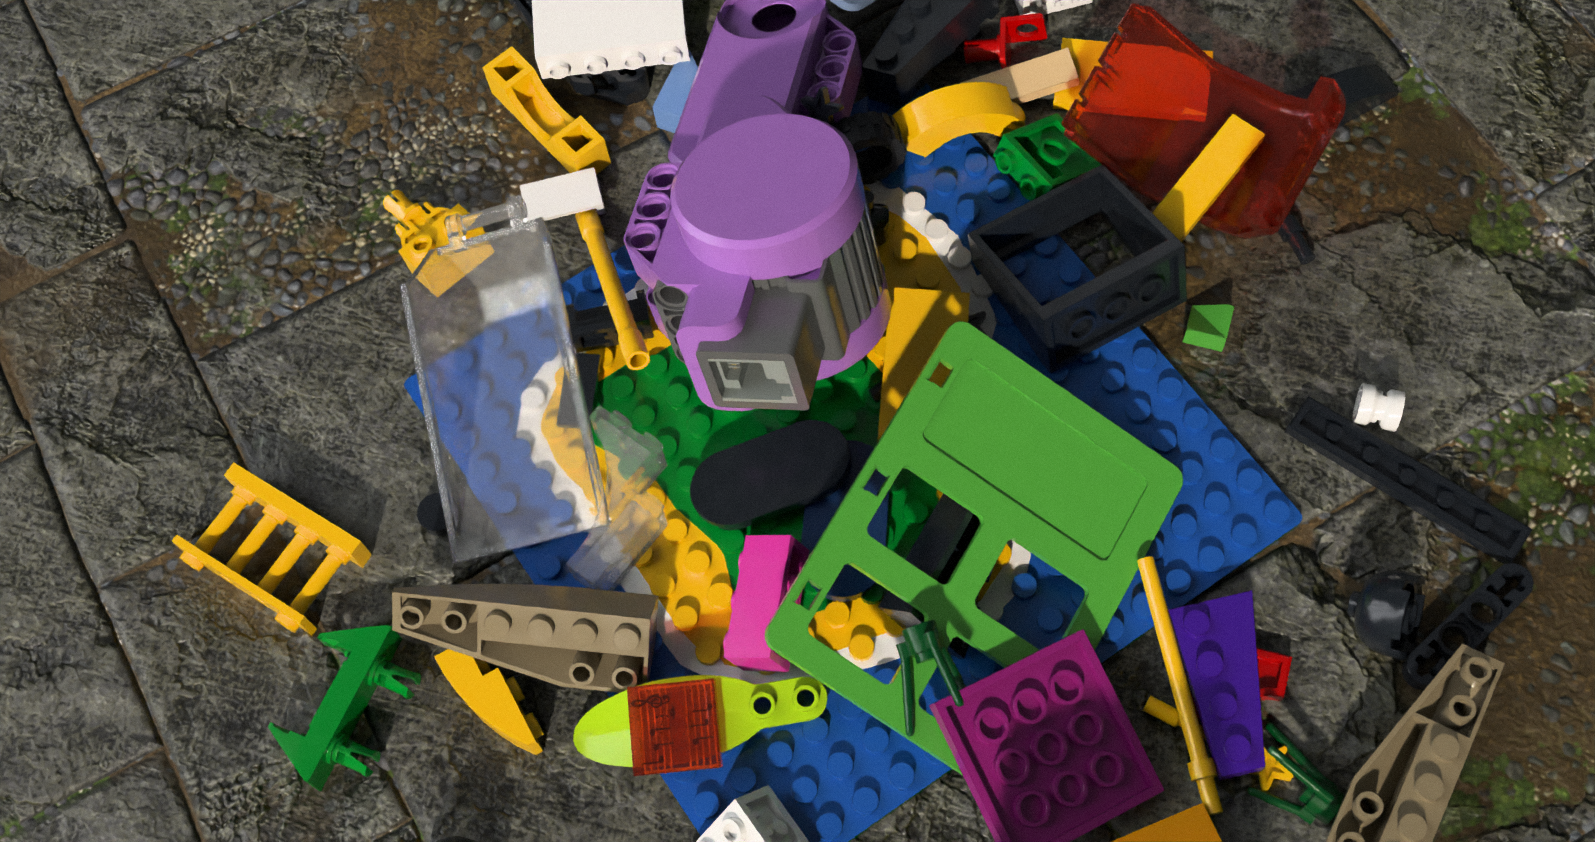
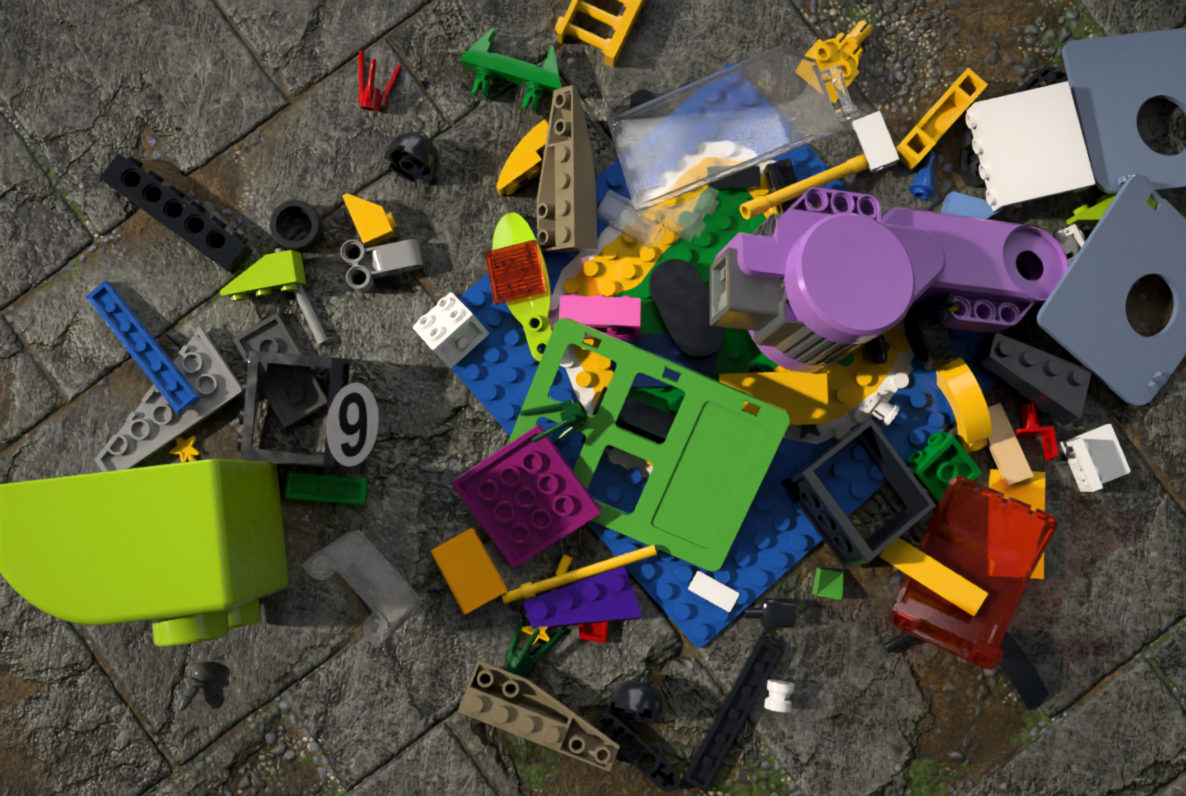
camera: 70 degrees right, 20 degrees up
(634, 147) = (923, 183): none -> blue cone
(954, 225) = (881, 409): none -> white bush
(1214, 485) = (713, 591): none -> white sticker
(1251, 403) = (773, 613): none -> black piece

